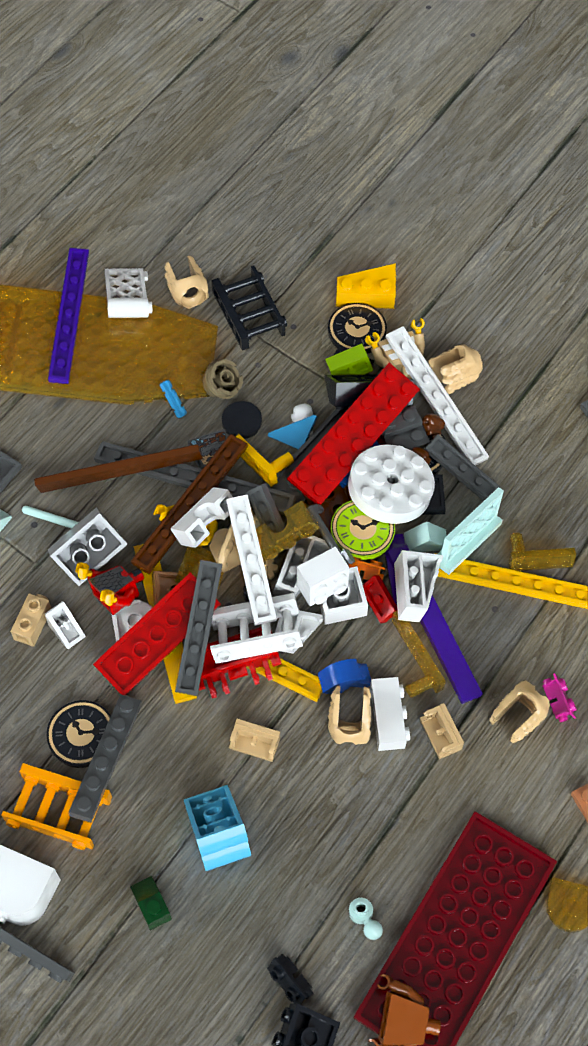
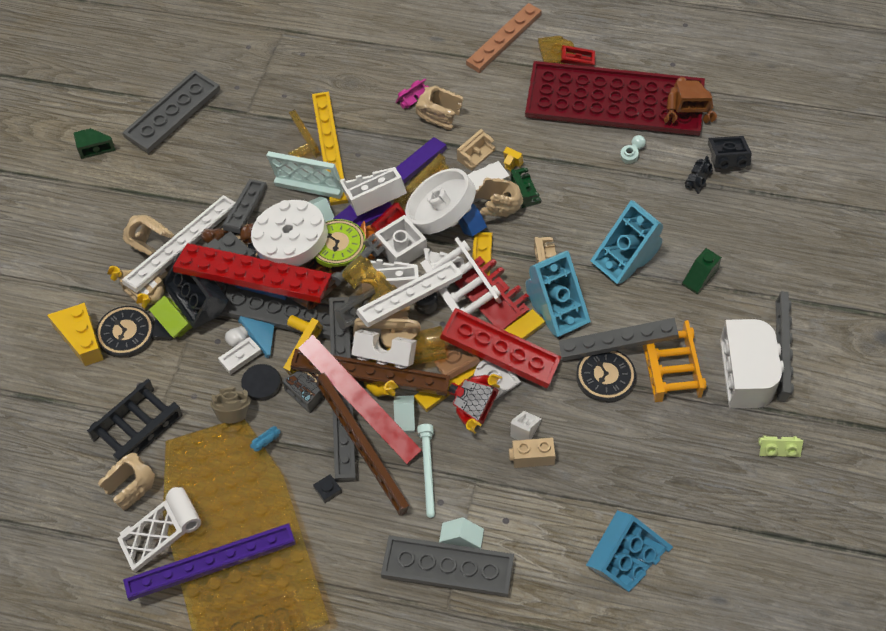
camera: 110 degrees left, 5 degrees down
(90, 542) = (446, 437): light grey slope -> none
(98, 434) = (327, 488): none -> black plate
(139, 525) = (405, 413): none -> light aqua slope
(169, 479) = (360, 399): none -> tile
(189, 717) = (557, 294): none -> medium azure brick
(198, 628) = (483, 312): dark grey plate -> none
(278, 409) = (239, 355): none -> white plate
(323, 576) = (402, 238): white brick -> none
(362, 762) = (526, 186): none -> dark green hinge
(368, 647) = (440, 201): none -> white piece
(410, 765) = (512, 158): none -> yellow tile
(554, 904) = (577, 58): none -> red tile

